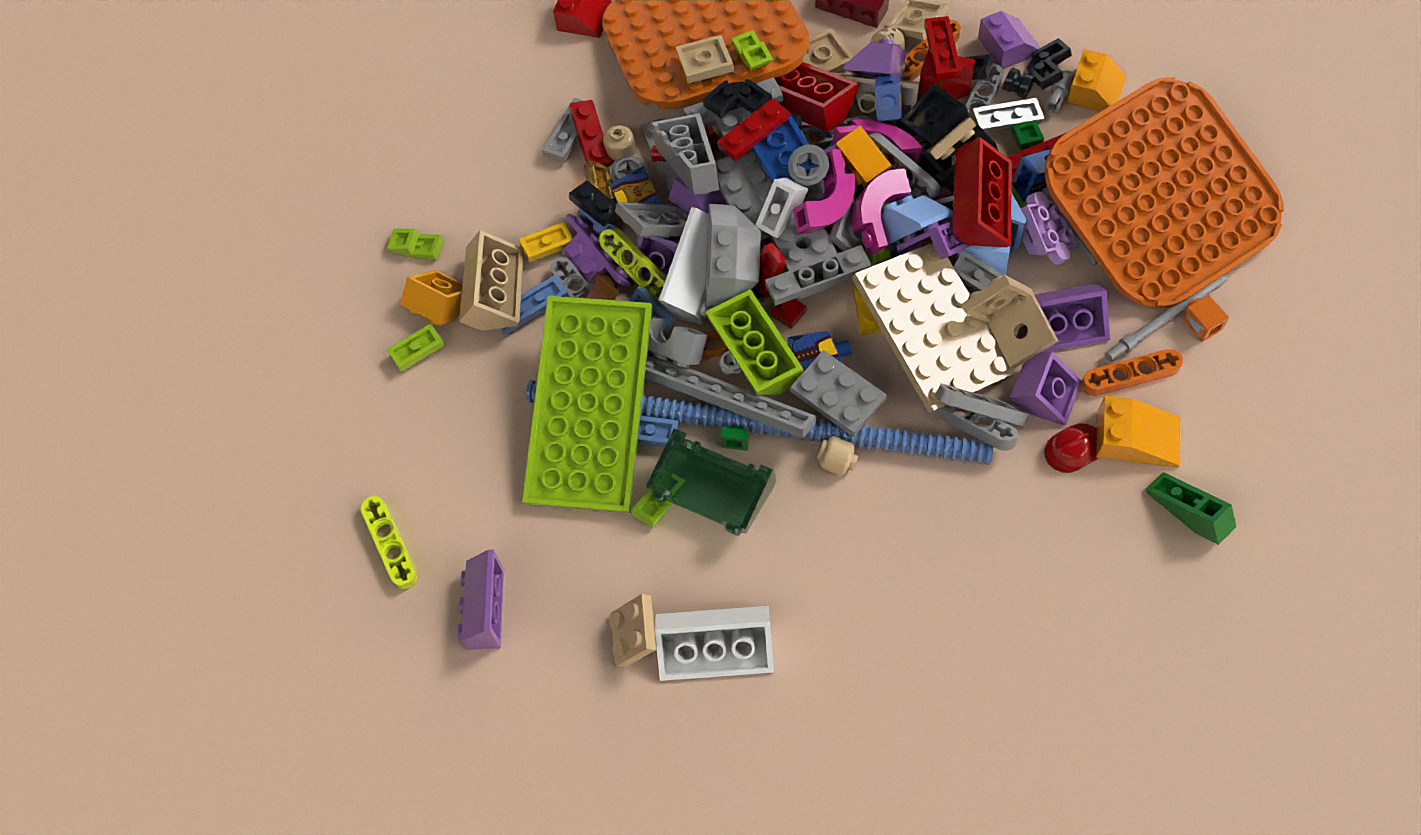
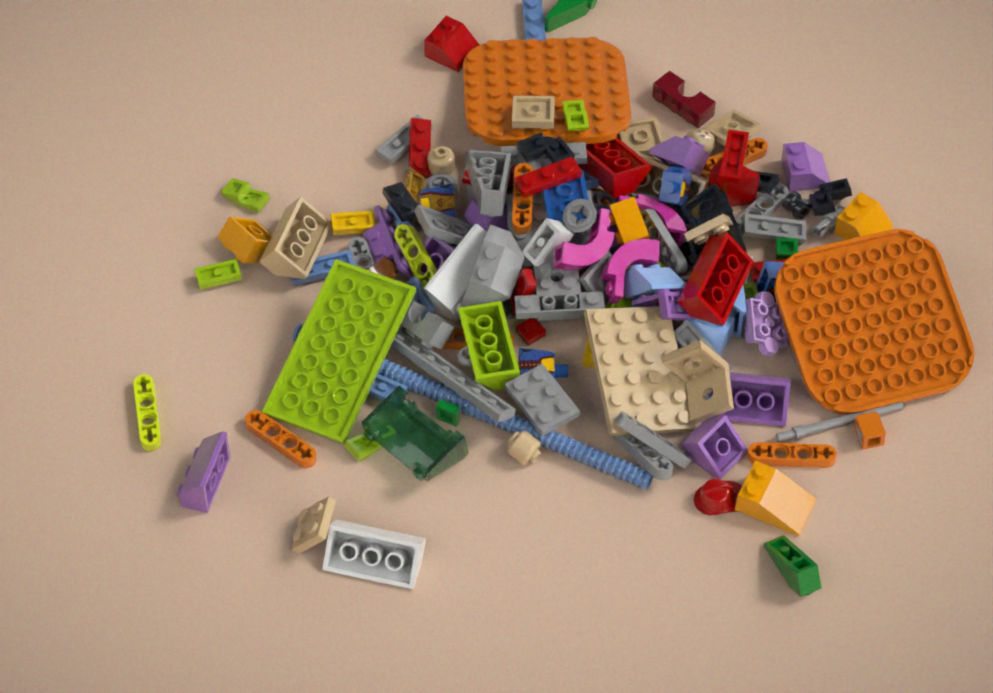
camera: 10 degrees right, 10 degrees down
(553, 531) = (283, 436): none -> orange beam
(728, 164) = (518, 199): none -> orange beam

